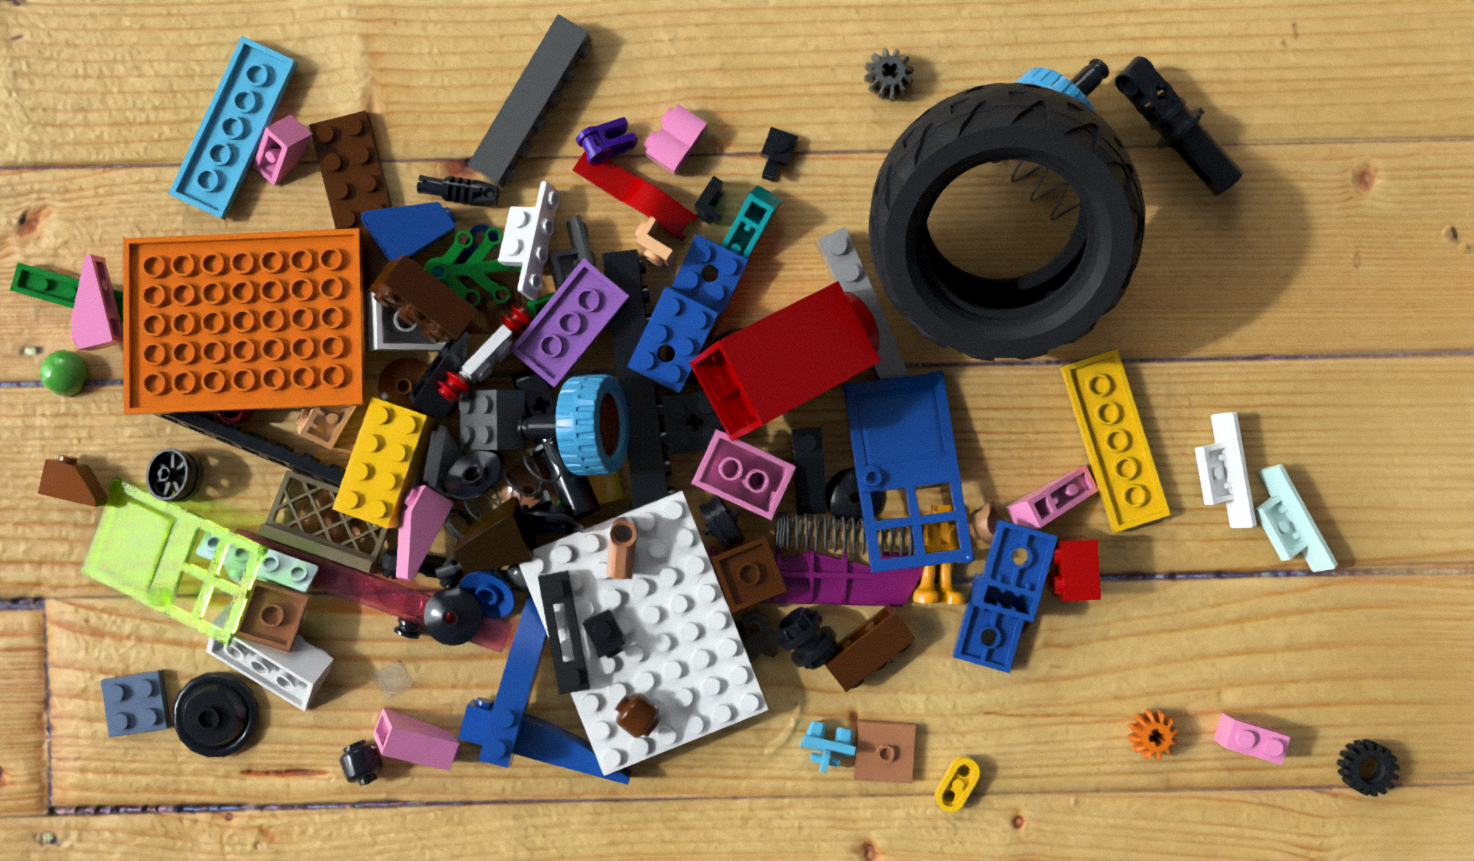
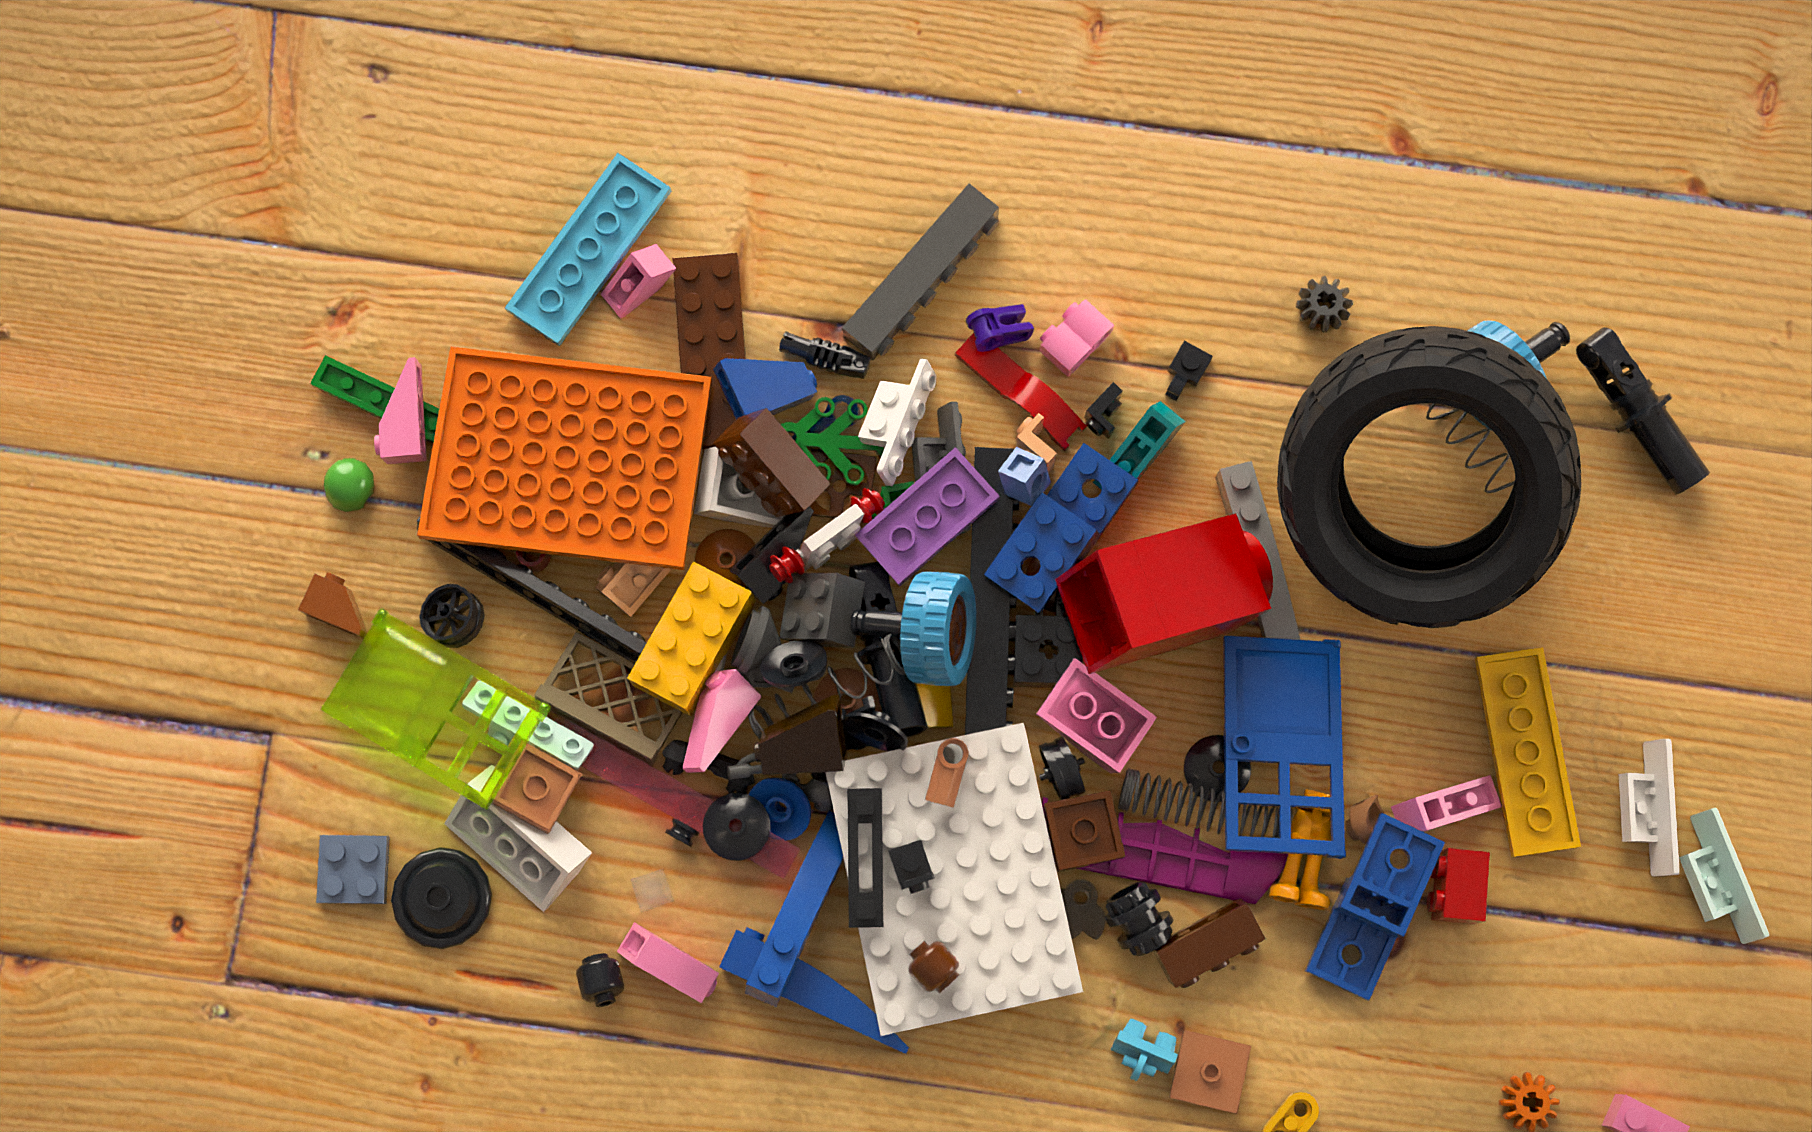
camera: 10 degrees right, 10 degrees down
(647, 274) = (1024, 476): none -> medium blue brick
(809, 470) = (1170, 728): black slope -> none

